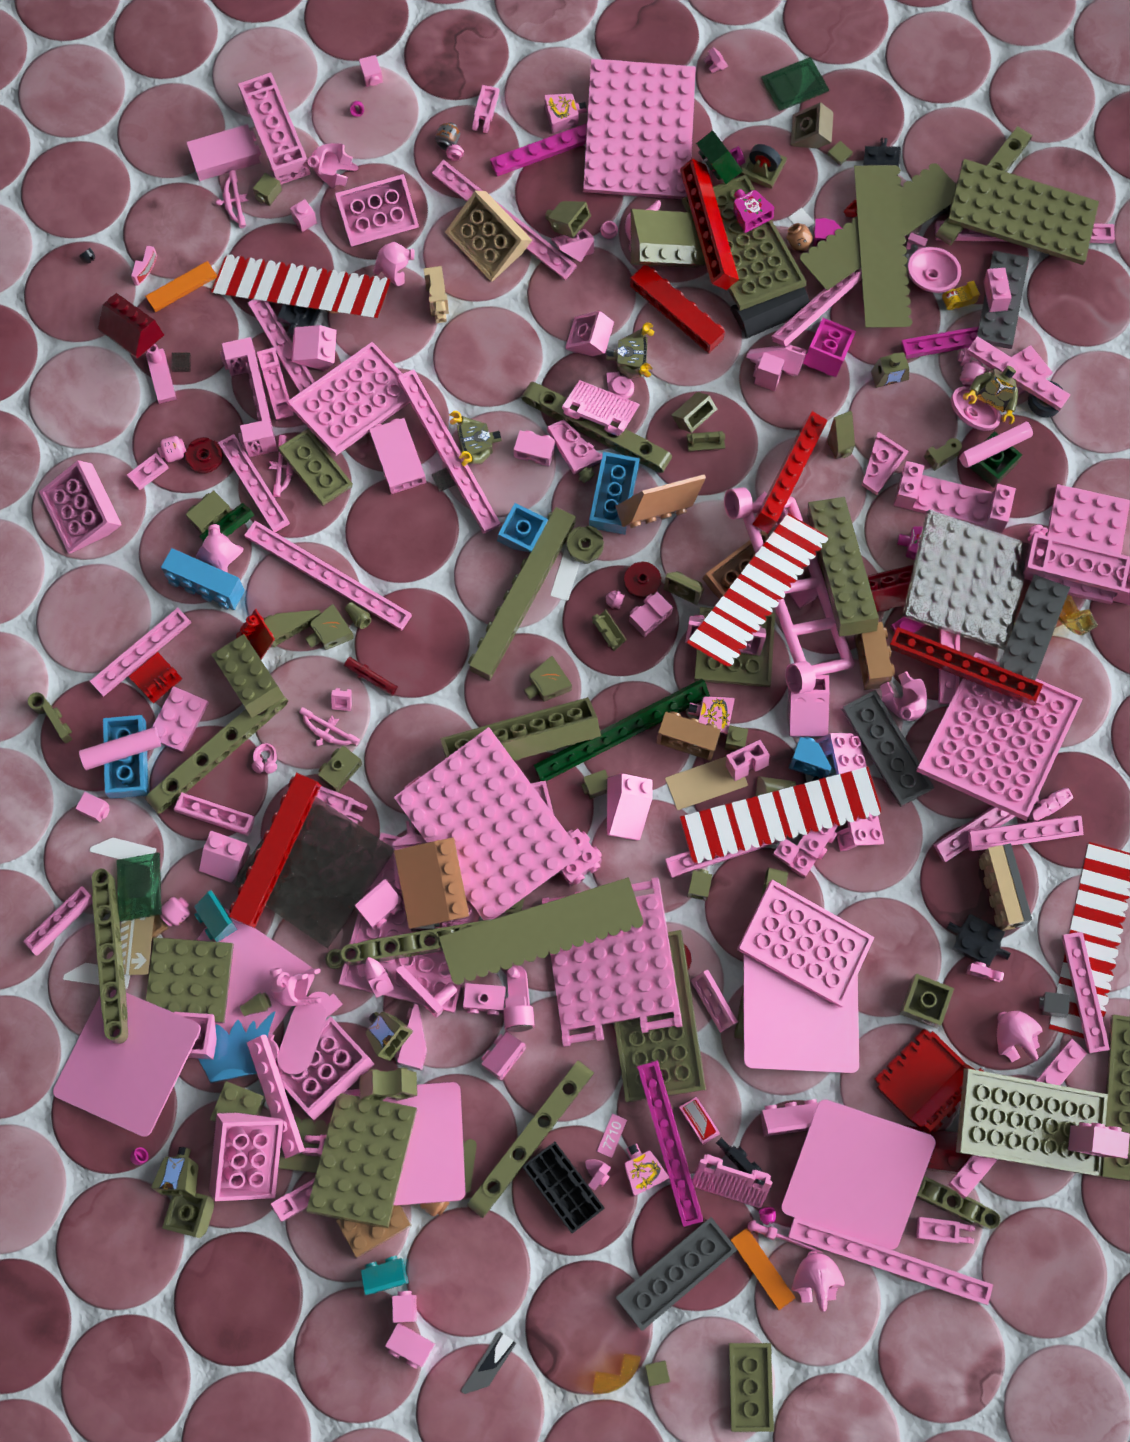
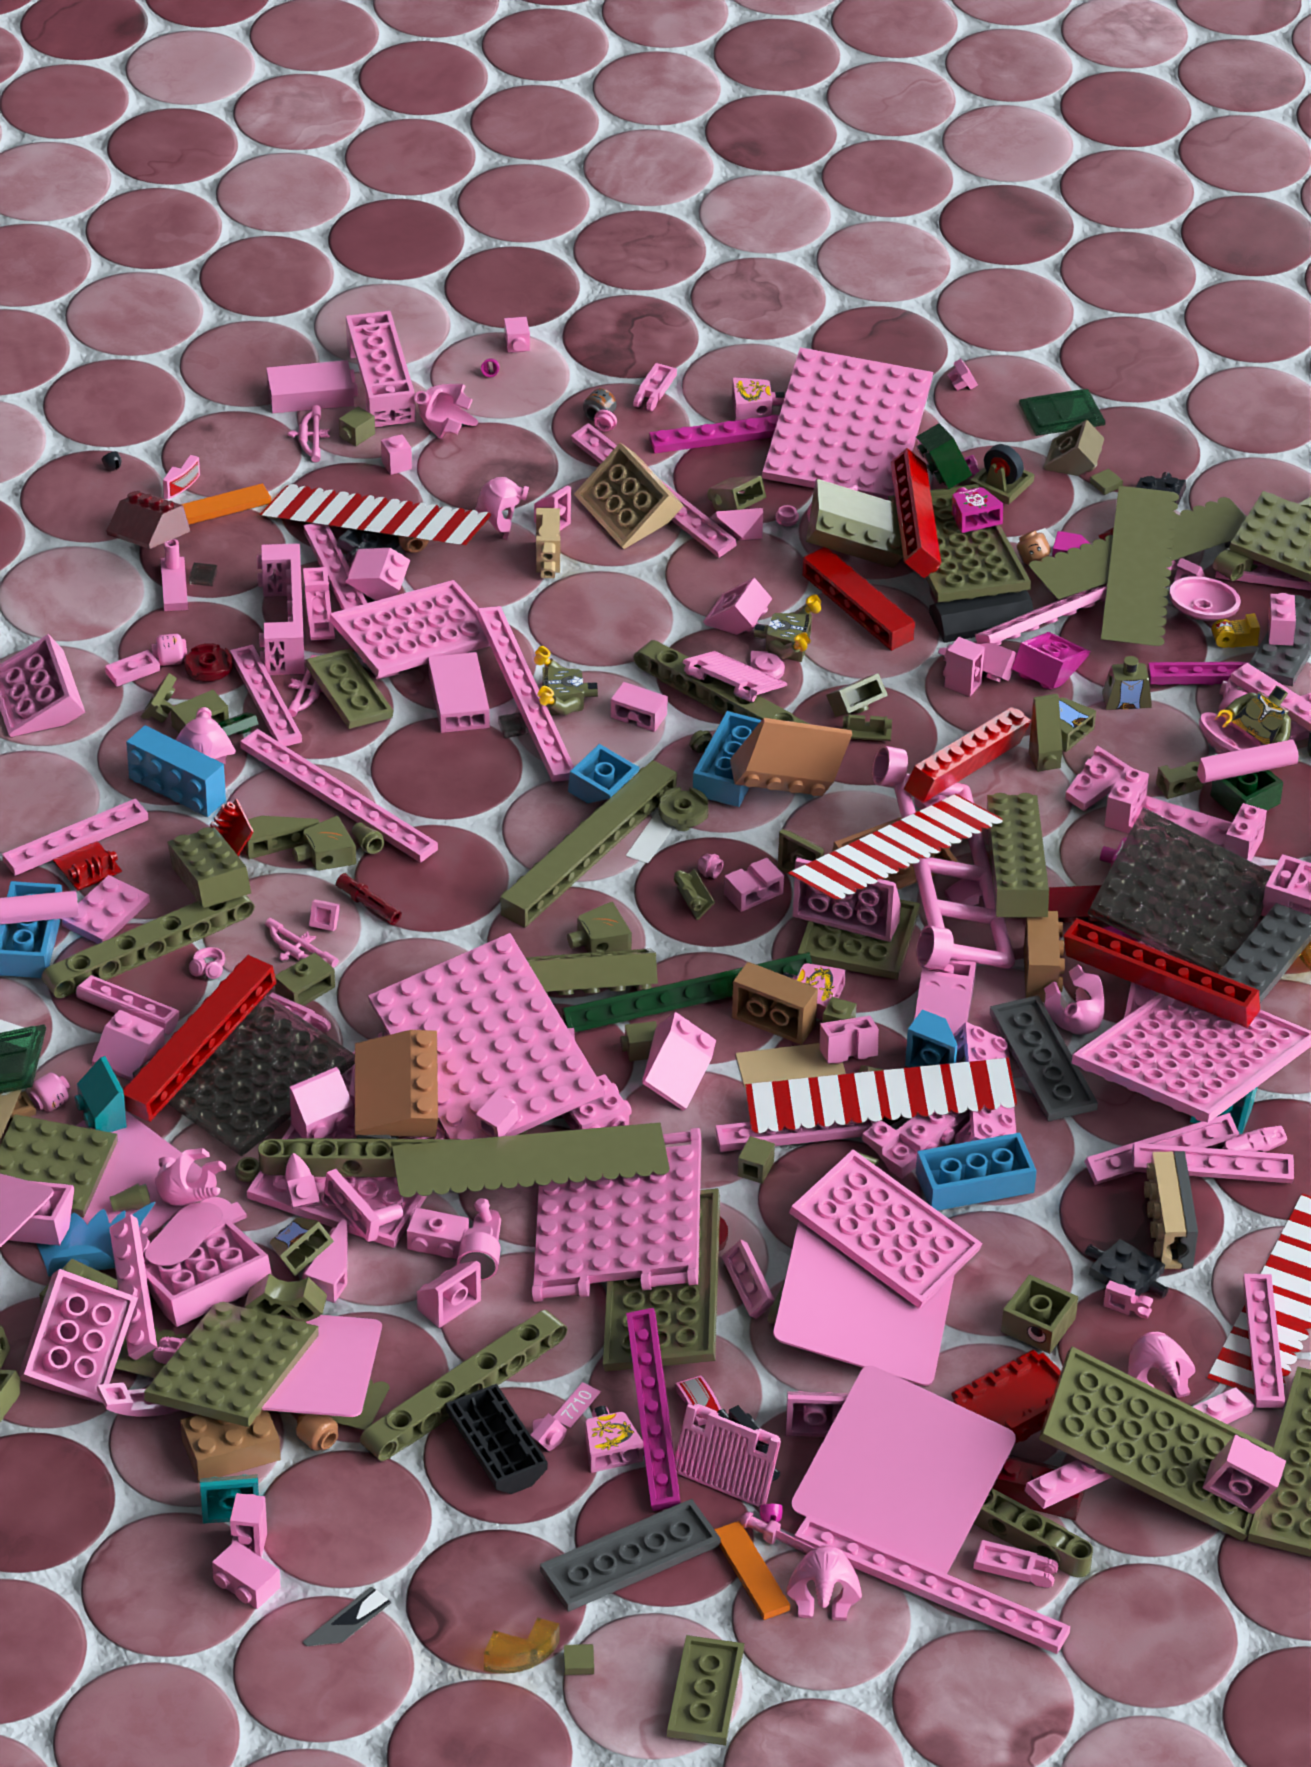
camera: 10 degrees right, 30 degrees down
(175, 494) = (158, 702): none -> olive plate
(376, 210) = (488, 452): bright pink slope -> none
(433, 254) = (558, 499): none -> bright pink slope
(510, 896) = (497, 1115): none -> bright pink brick
(573, 448) = (688, 711): bright pink wing -> none
(642, 588) = (749, 848): dark red plate -> none
(850, 402) = (1076, 722): none -> olive torso
(859, 873) = (976, 1171): none -> dark azure brick
(1054, 1004) = (1218, 1345): dark grey brick -> none

